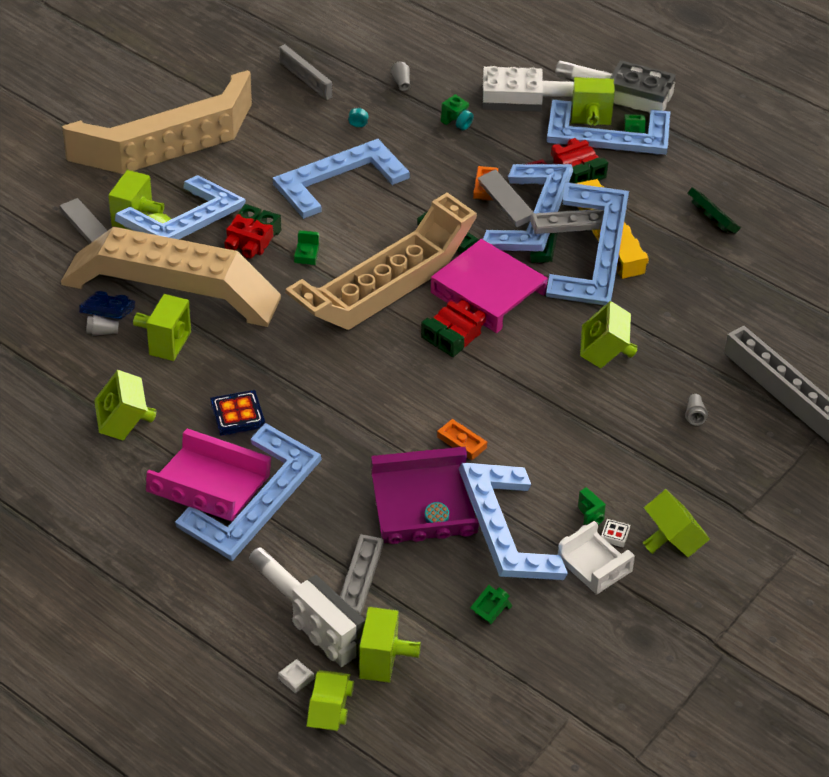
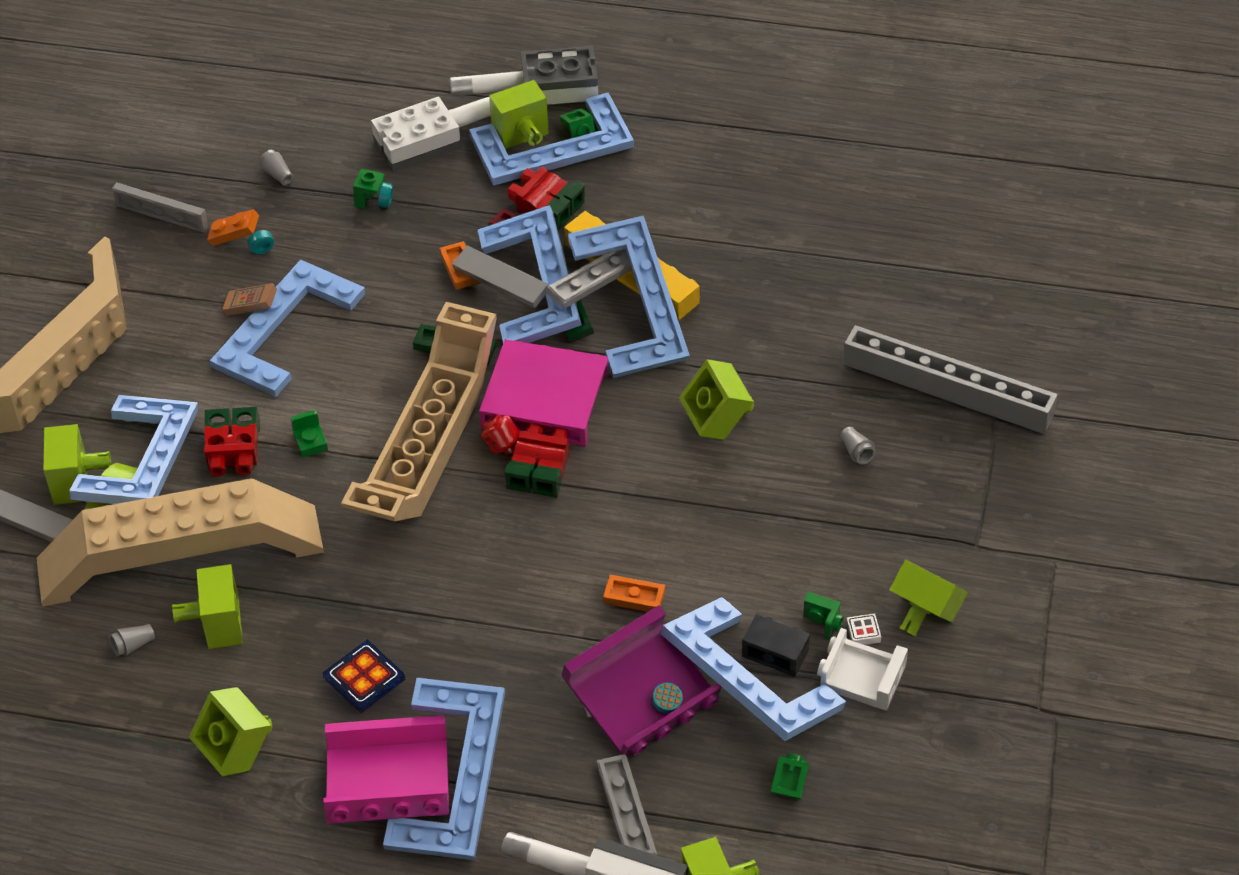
camera: 25 degrees left, 5 degrees up
(107, 306) = (123, 610): clear blue tile -> none
(325, 149) = (249, 299): none -> medium nougat tile
(344, 101) = (233, 227): none -> orange plate
(436, 297) = (500, 434): none -> red head
(541, 514) = (775, 645): none -> black brick
(713, 211) = (728, 197): dark green plate -> none

